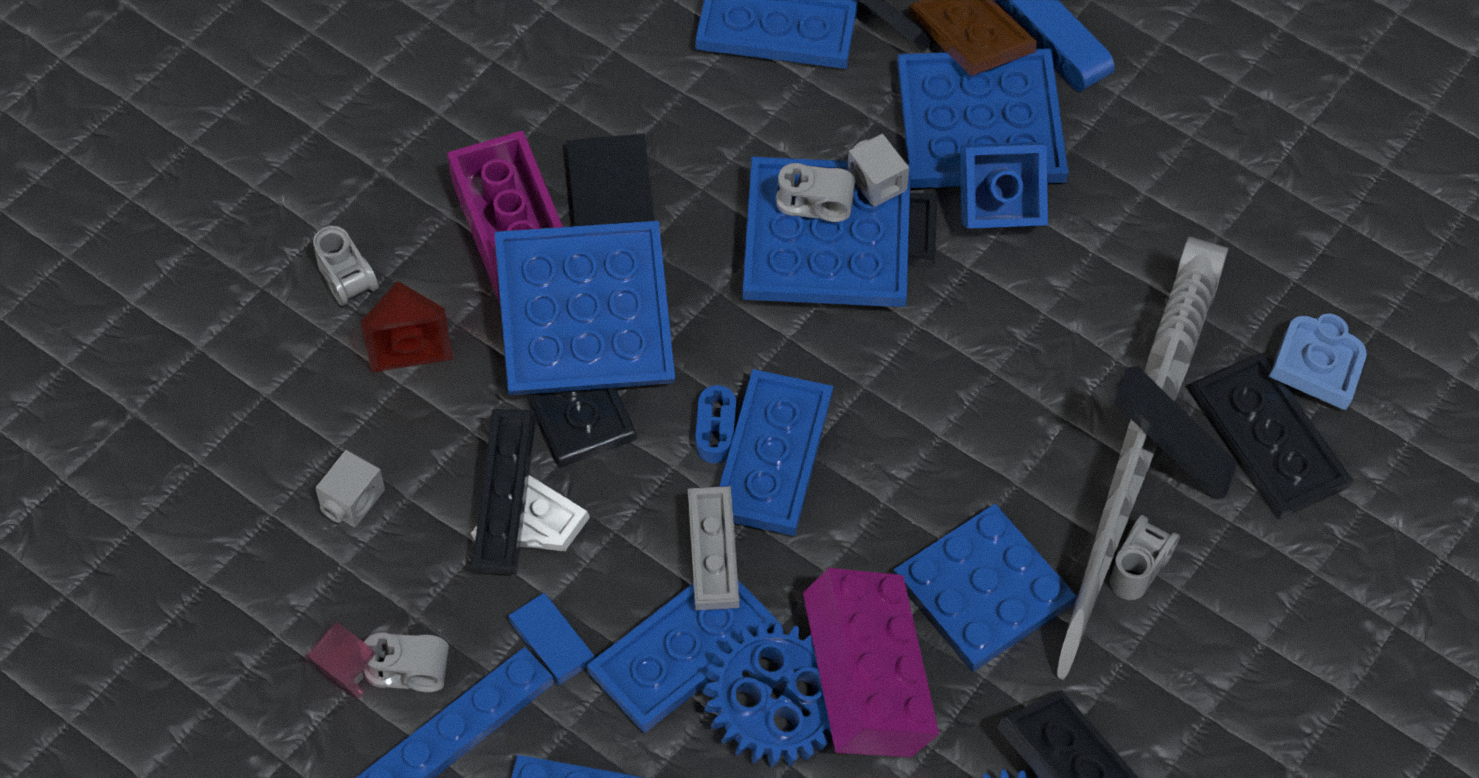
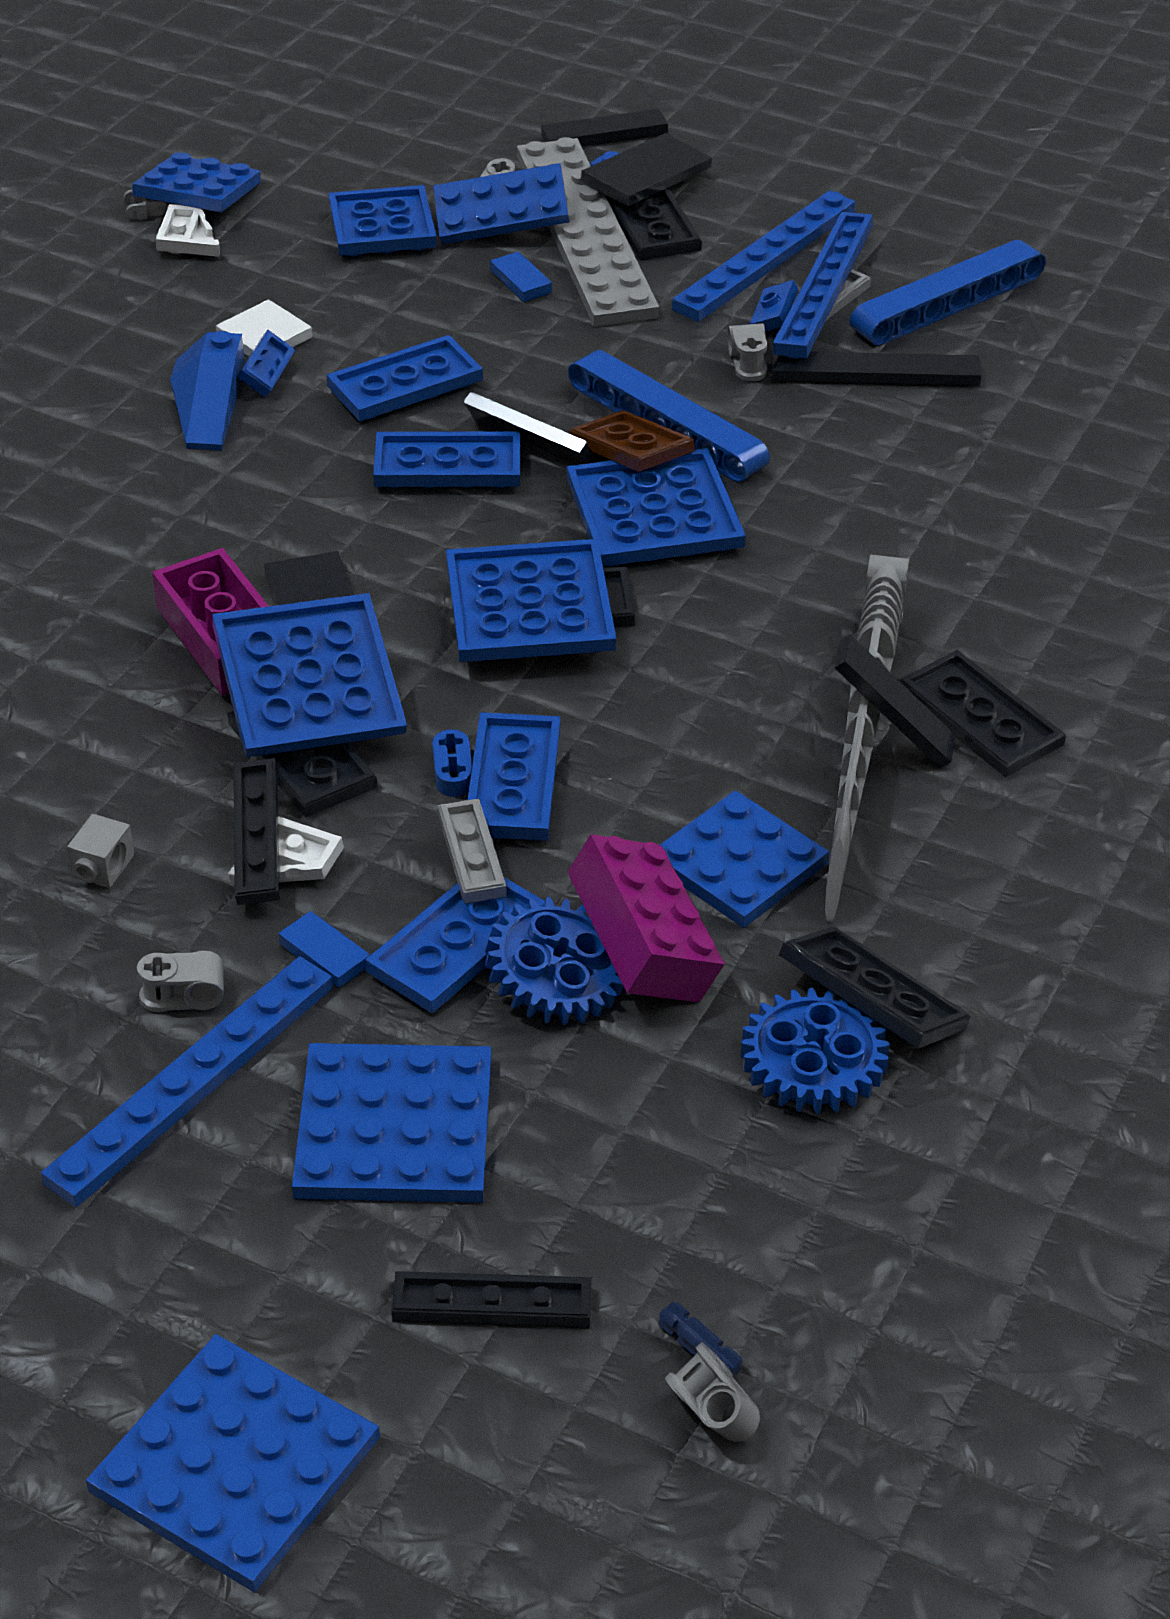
camera: 10 degrees left, 15 degrees down
(342, 657) = (115, 981): clear pink panel -> none
(345, 270) = (62, 678): light grey piece -> none
(405, 331) = (137, 715): clear red slope -> none
(819, 192) = (516, 562): light grey piece -> none
(878, 170) = (569, 540): light grey brick -> none
(1003, 185) = (688, 543): blue brick -> none
(1145, 553) = (884, 816): light grey piece -> none
(1320, 359) = (1012, 648): medium blue plate -> none

